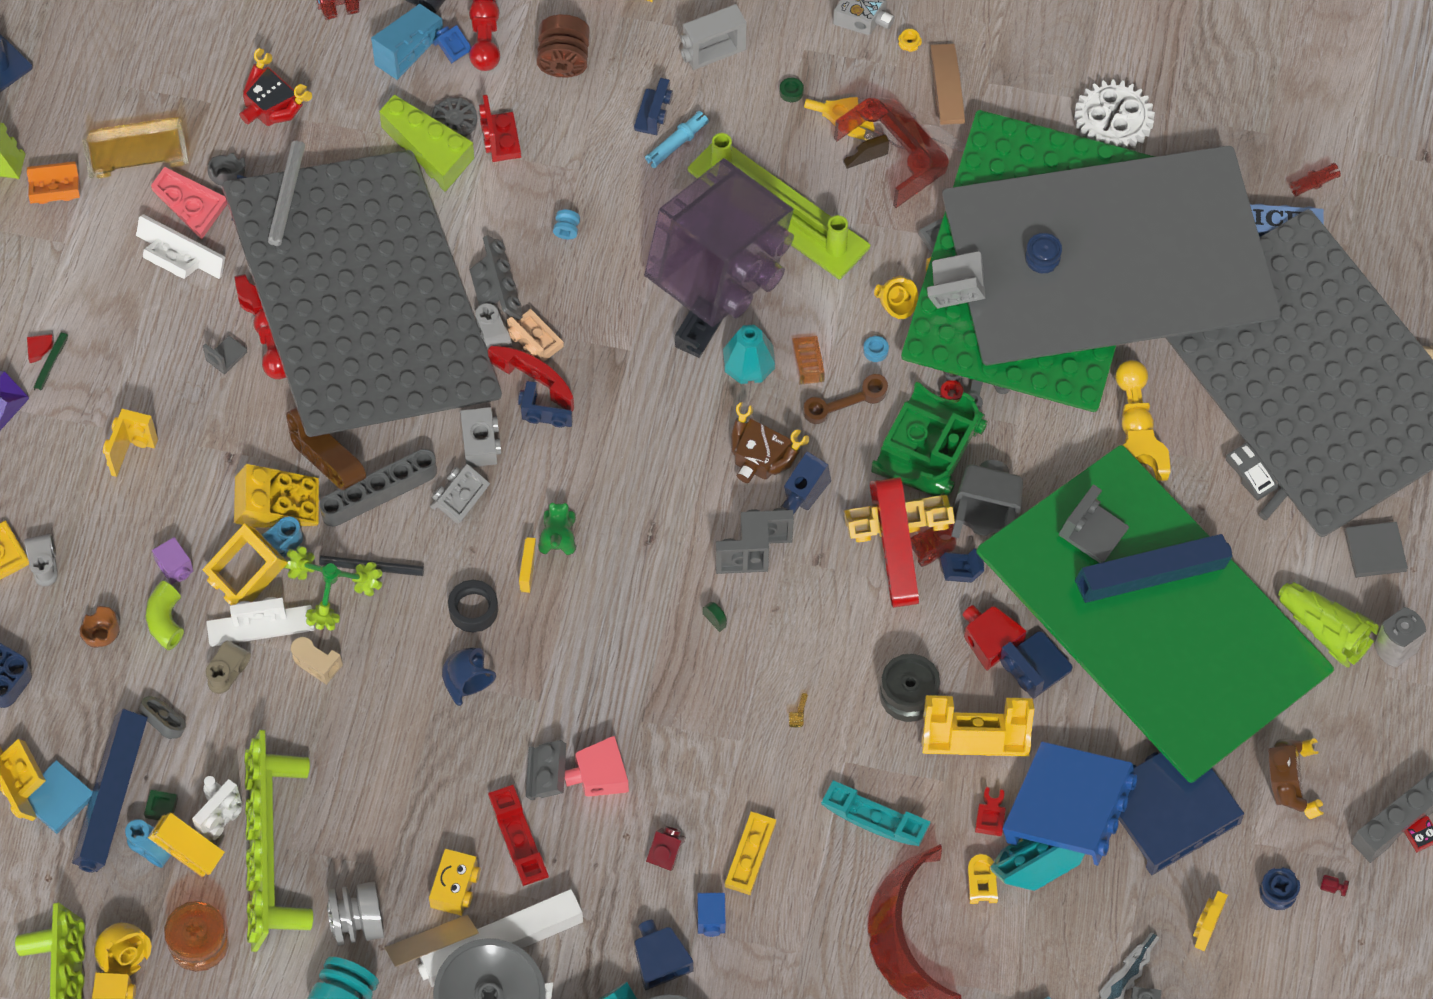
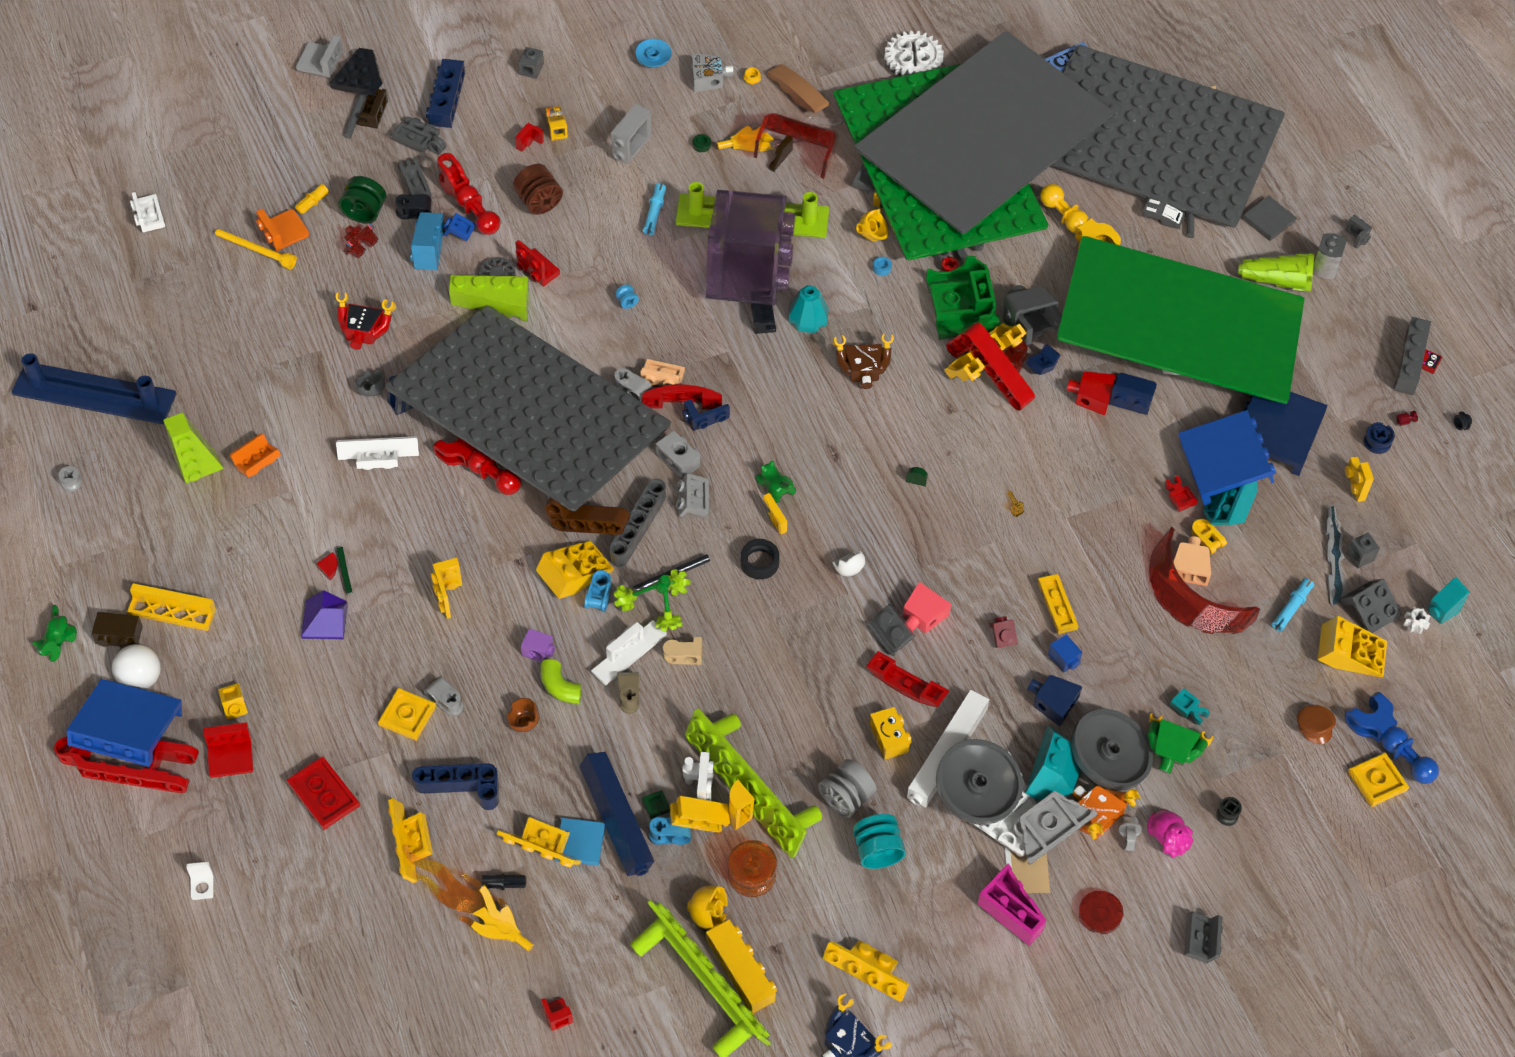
camera: 35 degrees left, 5 degrees down
(135, 146) = (297, 398): clear yellow windscreen -> none
(162, 717) = (613, 747): dark grey plate -> none
(189, 200) = (362, 417): coral wing -> none
(225, 354) = (464, 498): dark grey bracket -> none
(231, 860) = (740, 805): none -> yellow brick
(260, 580) = (612, 602): yellow window -> none
(286, 193) = (435, 369): light grey axle -> none
(431, 940) = (906, 776): tan sticker -> none
(465, 673) = (790, 603): dark blue piece -> none
(494, 280) = (608, 356): dark grey bracket -> none
(561, 669) = (850, 564): none -> white hair
(653, 108) = (625, 198): dark blue bracket -> none
(756, 533) = (908, 416): dark grey bracket -> none
(806, 483) = (910, 364): dark blue torso -> none
(811, 375) = (851, 305): clear orange slope -> none
(817, 410) = (902, 291): reddish brown piece -> none
(875, 817) = (1115, 538): teal slope -> none
(906, 684) = (1073, 448): pearl dark grey wheel -> none
(936, 898) = (1193, 562): none -> light nougat torso
(957, 280) = (910, 191): light grey bracket -> none
(977, 732) = (1137, 450): yellow bracket -> none
(1043, 253) = (948, 148): dark blue wheel -> none
(1093, 528) = (1111, 288): dark grey bracket -> none
(1153, 568) = (1164, 292): dark blue brick -> none
(1286, 775) = (1333, 370): reddish brown torso -> none
(1314, 179) = (1060, 30): clear red pin -> none
(1399, 929) = (1462, 421): none -> black plate

